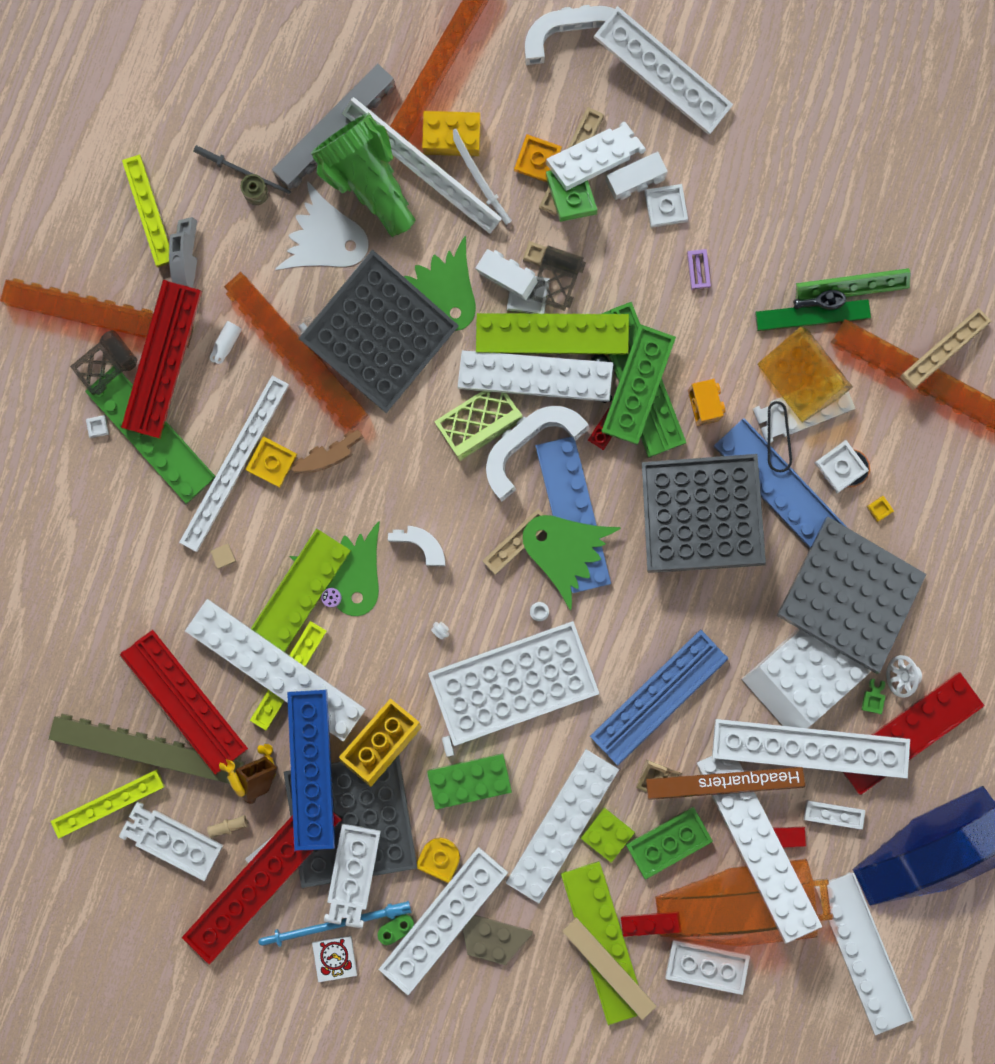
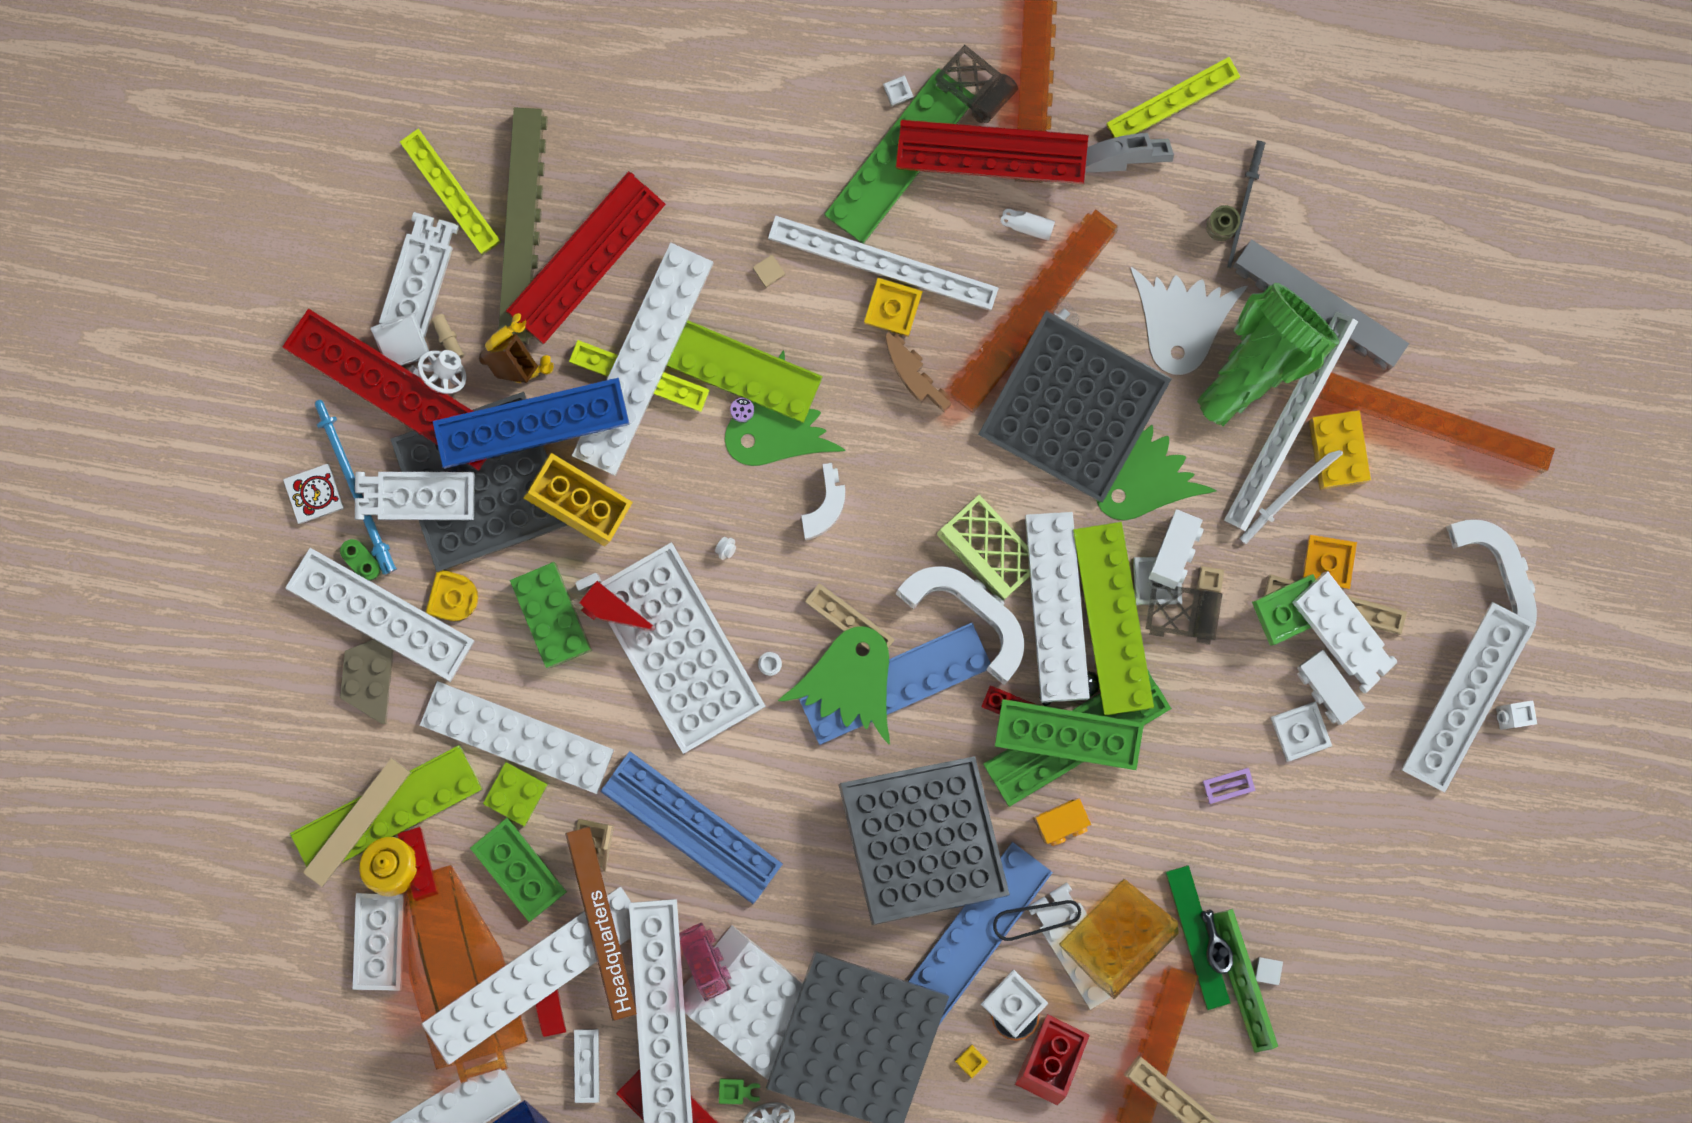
camera: 80 degrees right, 0 degrees up
(222, 864) = (401, 339): none -> white piece
(251, 833) = (445, 368): none -> white wheel
(472, 732) = (607, 607): none -> red slope
(649, 949) = (388, 866): none -> yellow wheel
(682, 39) = (1516, 715): none -> white bracket
(769, 704) = (705, 961): none -> clear pink brick
(848, 265) = (1268, 971): none -> white tile
(890, 444) = (1052, 1060): none -> red slope

